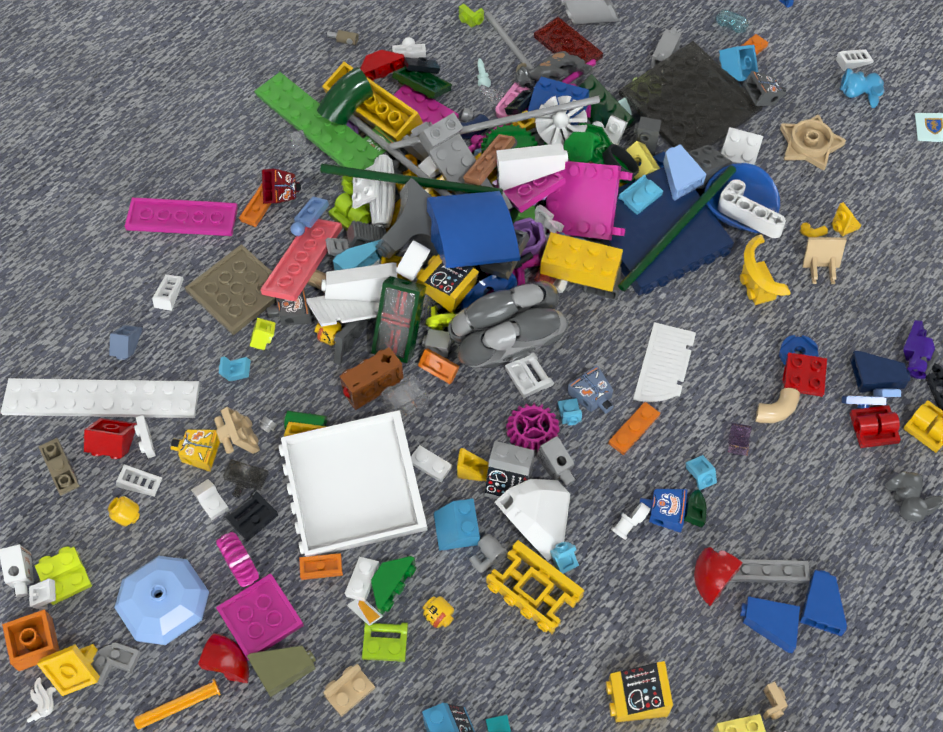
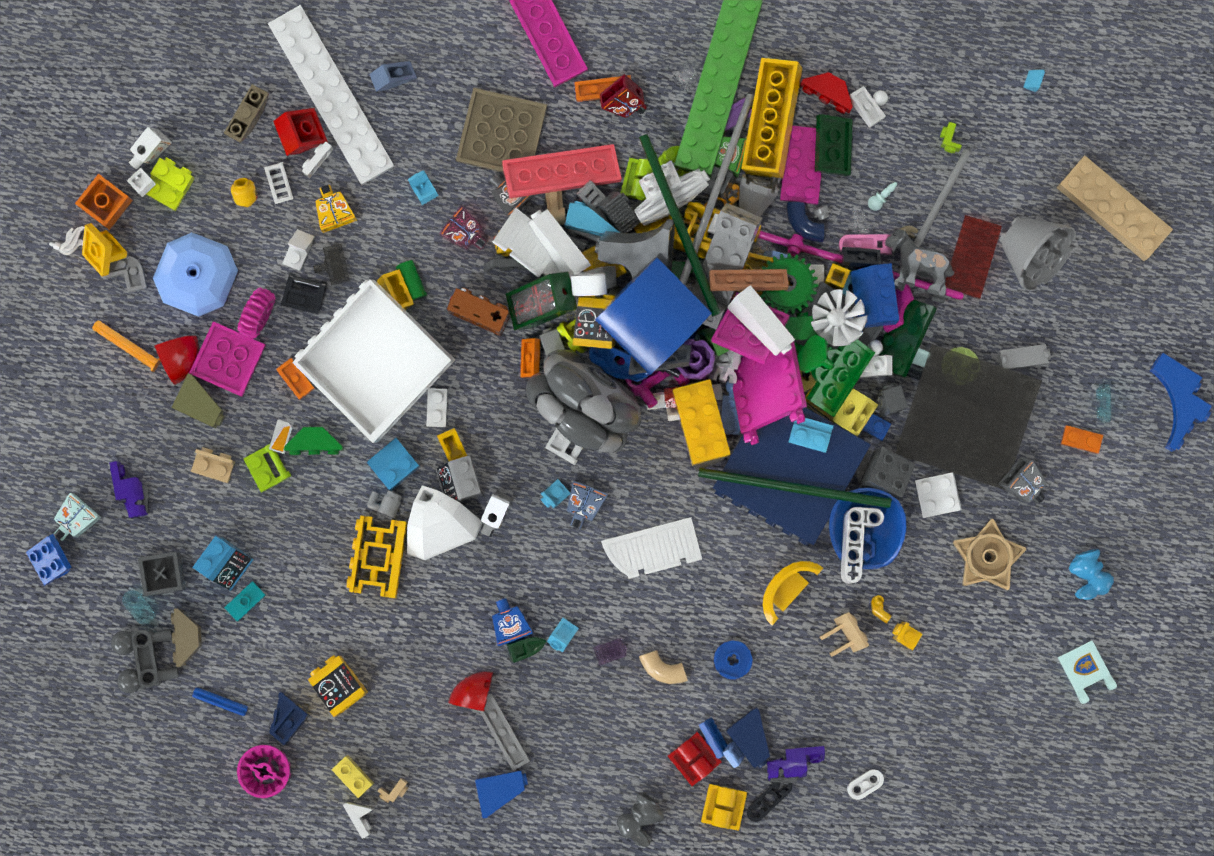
camera: 60 degrees right, 25 degrees up
(167, 302) = (465, 80): white slope -> none
(236, 429) = (363, 233): tan plate -> none
(262, 333) = (467, 188): neon yellow brick -> none
(267, 424) = (389, 251): light grey plate -> none
(294, 357) = (463, 230): none -> clear pink torso
(308, 215) = (610, 145): medium blue plate -> none
(344, 37) = (847, 31): dark tan piece -> none
(345, 97) = (748, 95): dark green brick -> none
(360, 581) = (305, 417): white plate -> none
(407, 396) = (474, 353): clear brick -> none
(421, 65) = (853, 131): black plate -> none
(438, 612) = (311, 495): yellow head -> none
(506, 120) = (798, 260): light grey piece -> none
(523, 416) = (501, 470): dark pink gear -> none
(564, 557) = (416, 566): medium azure bracket -> none
(624, 156) = (844, 405): black tyre -> none
(626, 523) = (479, 601): white connector -> none
(634, 428) = (572, 557): orange plate -> none
(682, 172) = (857, 458): light blue slope -> none
(739, 61) = (1044, 440): dark azure slope -> none
(773, 621) = (460, 757): blue slope -> none
(805, 374) = (708, 676): red plate -> none
(844, 55) = (1117, 539): white slope -> none

